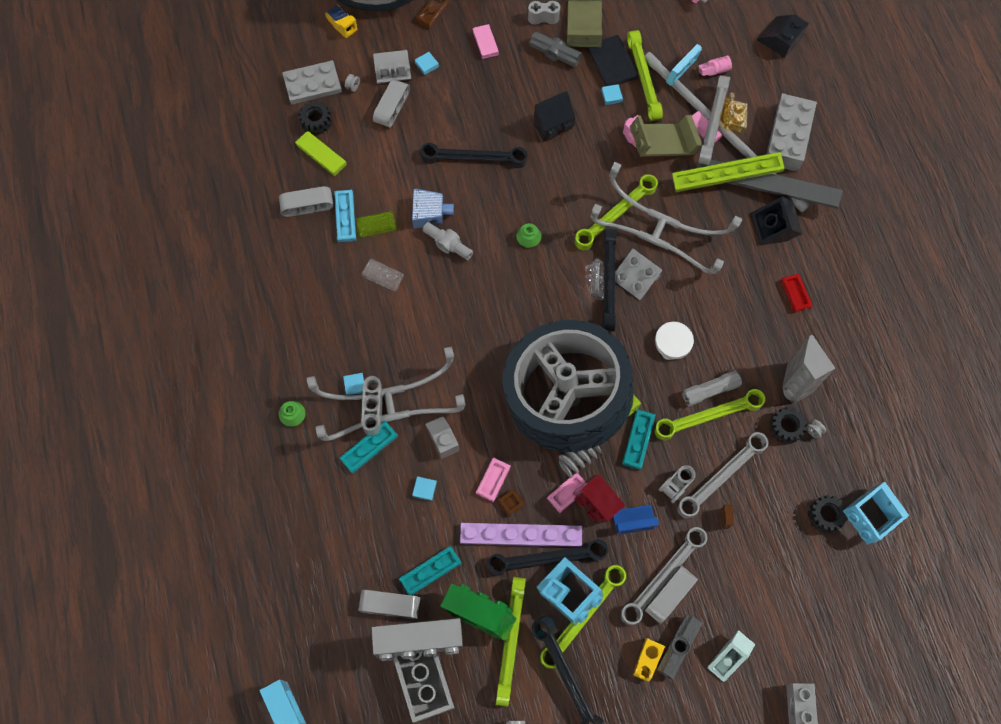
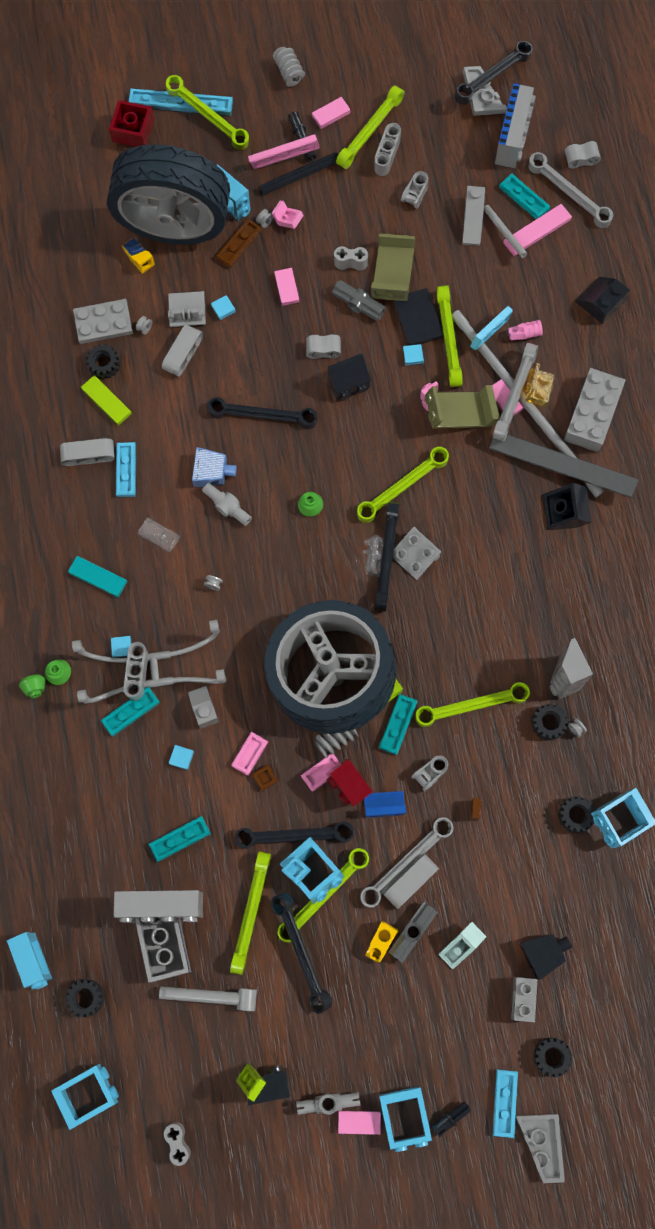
camera: 10 degrees right, 5 degrees up
(267, 428) = (33, 685): none -> bright green cone
(325, 318) = (97, 576): none -> teal tile
(376, 224) = (156, 480): clear neon green tile -> none
(389, 604) = (137, 868): light grey beam -> none
(441, 315) = (213, 582): none -> light grey bush
(479, 611) = (221, 882): green brick -> none
(521, 535) = (271, 810): lavender plate -> none
(526, 91) = (323, 346): none -> light grey axle
(654, 238) = (449, 496): light grey bar -> none
(674, 340) = (445, 625): white tile -> none
(716, 386) = (476, 678): light grey axle -> none
(723, 474) = (478, 766): light grey piece -> none
(728, 172) = (522, 450): lime plate -> none
(796, 293) = (578, 584): red tile -> none
(816, 657) = (545, 954): none -> black torso

